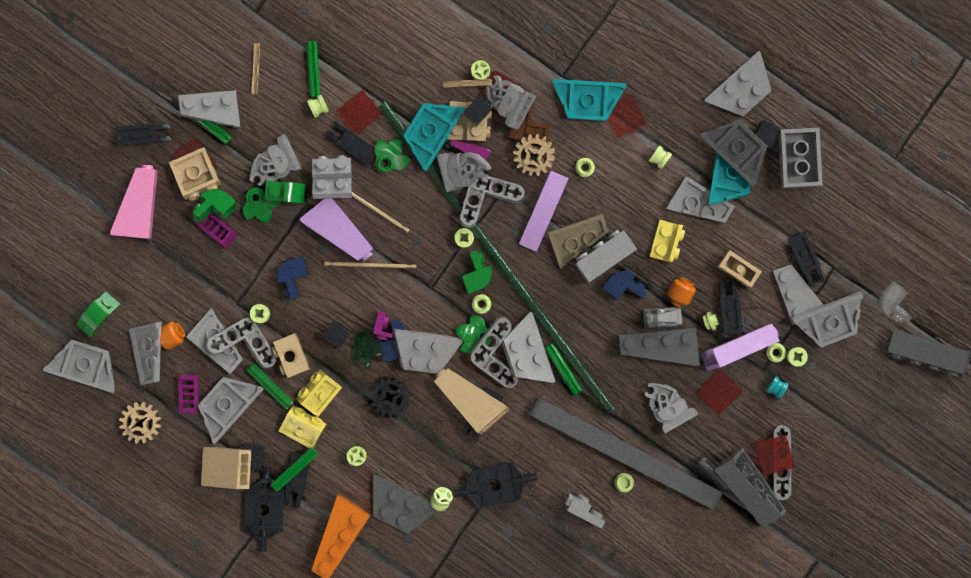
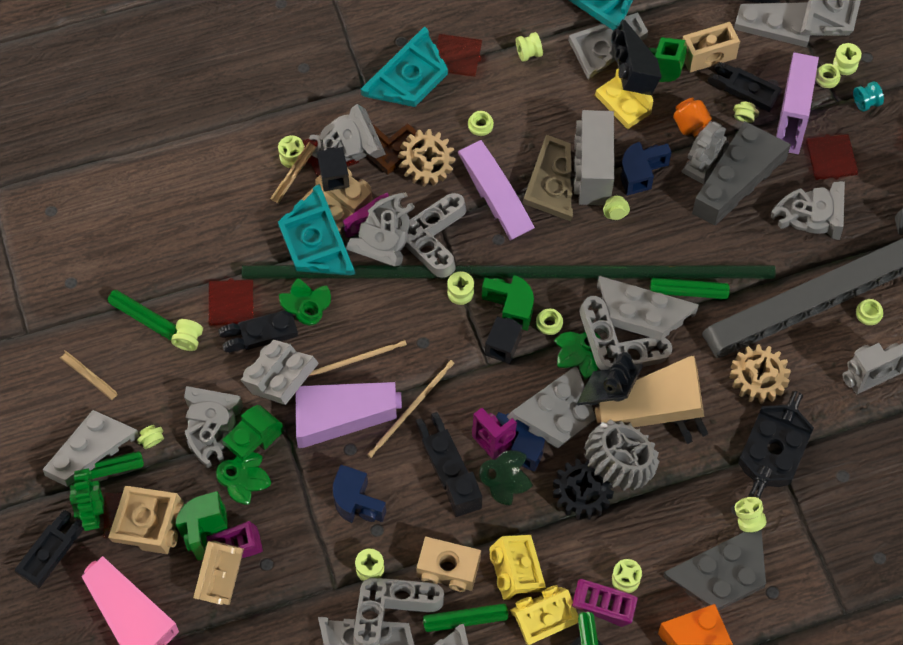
camera: 55 degrees left, 25 degrees down
(178, 134) = (86, 499): none -> green gear
(193, 237) = (218, 573): none -> tan hinge
(243, 135) = (150, 436): none -> yellowish green plate
(335, 466) = (622, 606): none -> magenta slope
(355, 303) = (441, 450): none -> black hinge
(413, 416) = (621, 455): none -> light grey gear
(449, 287) = (503, 339): none -> black brick
(458, 370) = (612, 383): none -> black hinge
(522, 450) = (774, 373): none -> tan gear
(584, 290) = (616, 208): none -> yellowish green plate
(688, 235) = (636, 63): none -> black slope
(707, 245) = (671, 57): none -> green brick

